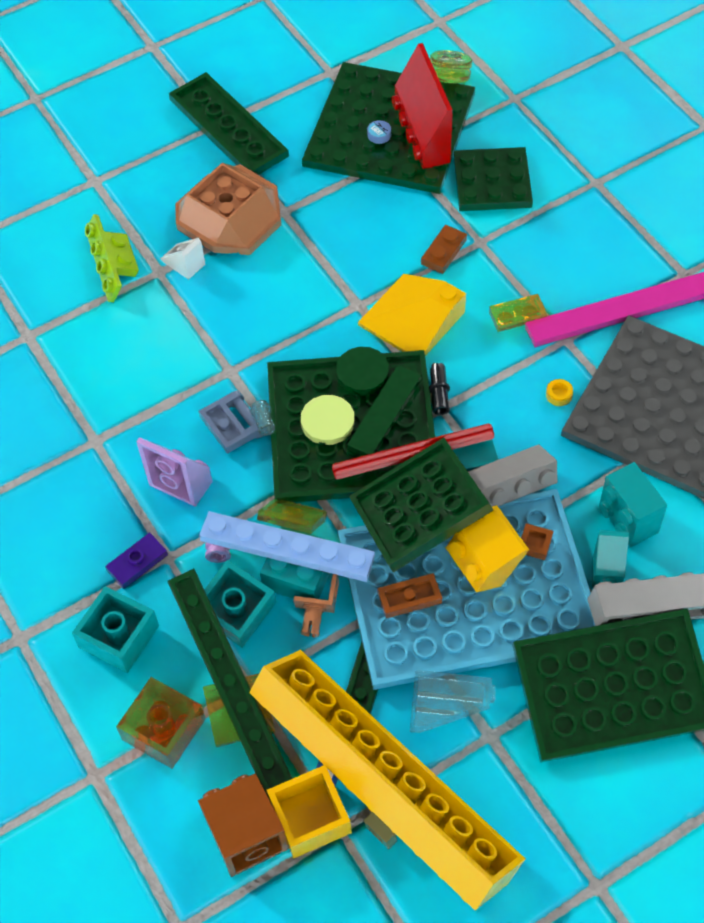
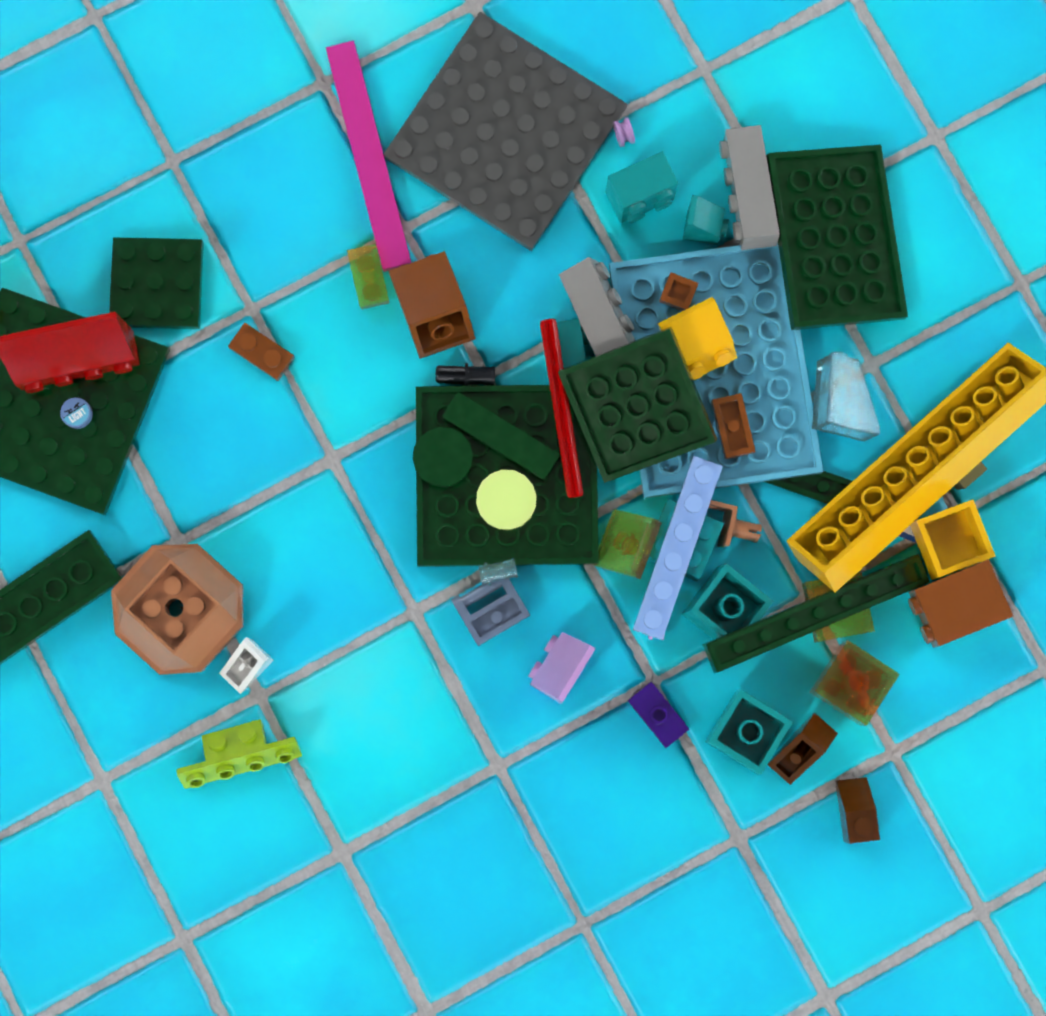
camera: 90 degrees left, 25 degrees up
(35, 736) = (857, 811): none -> reddish brown slope
(101, 683) = (803, 749): none -> reddish brown slope
(415, 313) = (356, 396): yellow slope -> none
(497, 355) = (432, 304): none -> dark orange slope
(559, 392) = (478, 245): yellow tile -> none
(686, 495) = (624, 132): none -> lavender bush

